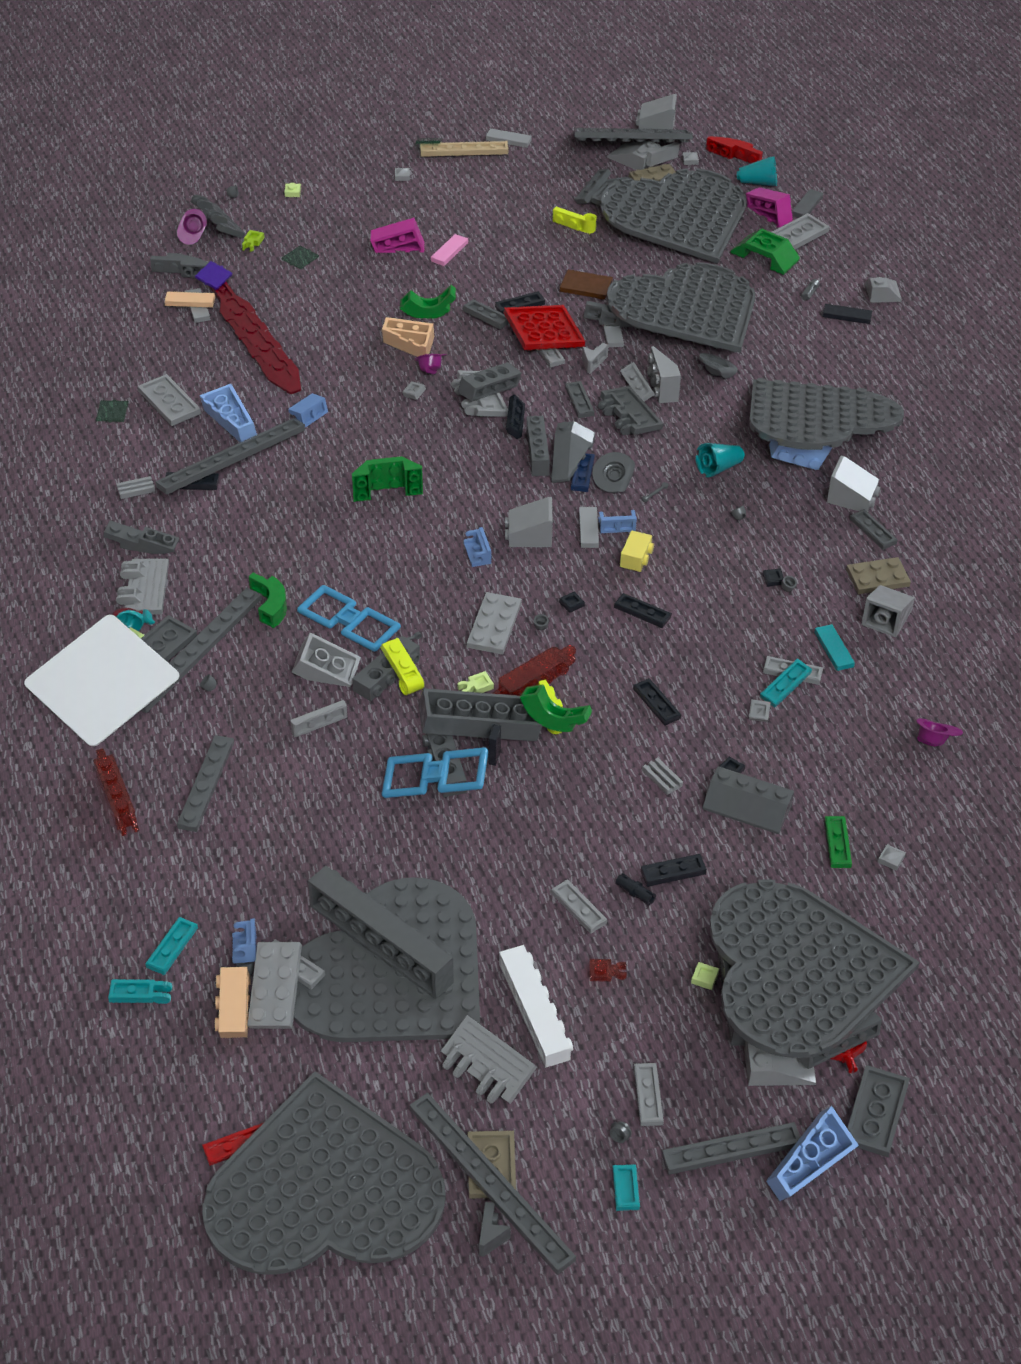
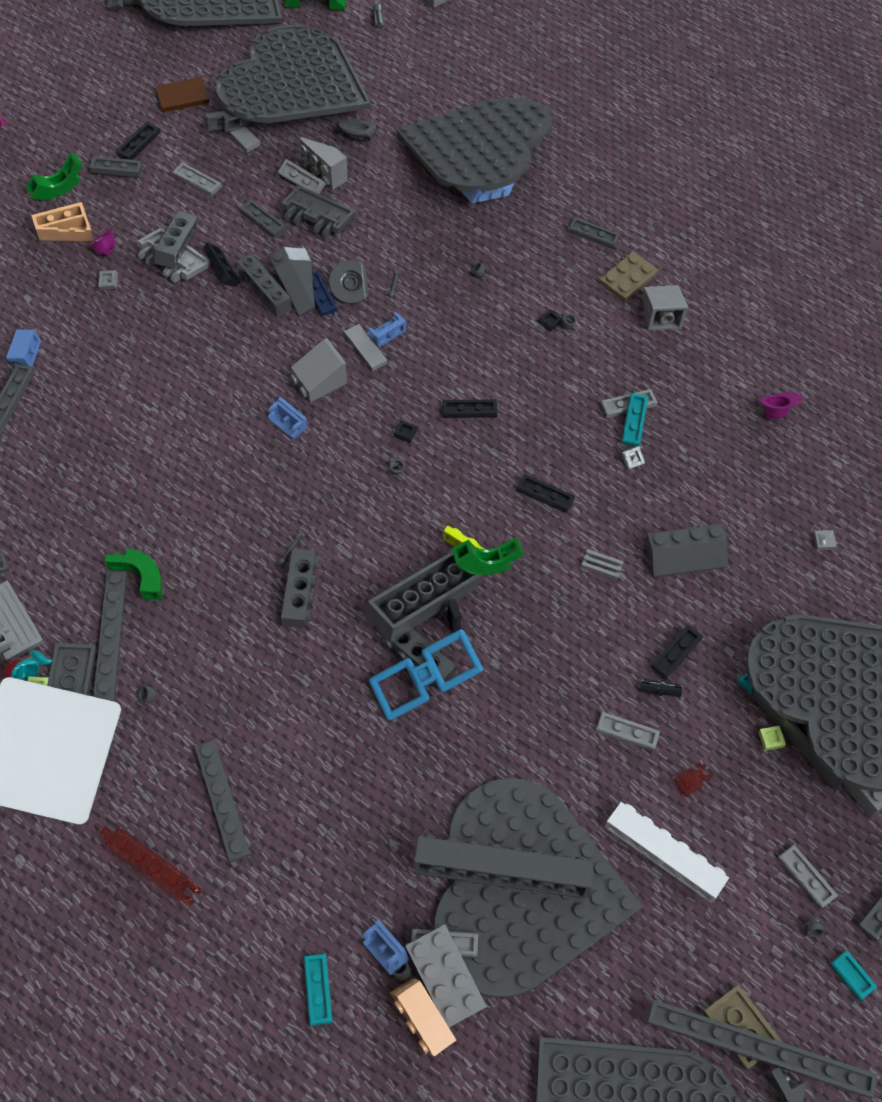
camera: 35 degrees left, 15 degrees up
(139, 991) = (324, 1058): teal hinge -> none
(318, 718) = (277, 674): light grey tile -> none
(325, 662) = (239, 612): light grey slope -> none
(349, 617) = (223, 552): dark azure bar -> none
(387, 474) = (155, 382): green slope -> none
(409, 676) = (317, 580): neon yellow plate -> none
(449, 250) = (29, 111): bright pink tile -> none
(478, 683) = (387, 559): yellowish green plate -> none
(490, 1060) = (670, 927): light grey hinge -> none
(494, 623) = (356, 488): light grey plate -> none
(544, 327) = (180, 158): red plate -> none
(544, 666) = (429, 525): clear red hinge -> none
(583, 223) = (136, 30): neon yellow plate -> none
(593, 359) = (245, 170): light grey slope -> none
(636, 551) = (427, 353): light yellow brick -> none
(717, 458) = (426, 225): teal cone -> none
(732, 764) = (648, 525): black tile -> none
(834, 647) = (644, 364): teal tile -> none
(838, 842) = (776, 549): green tile -> none
(847, 313) = (425, 27): black tile -> none
(852, 486) = (554, 200): light grey slope -> none

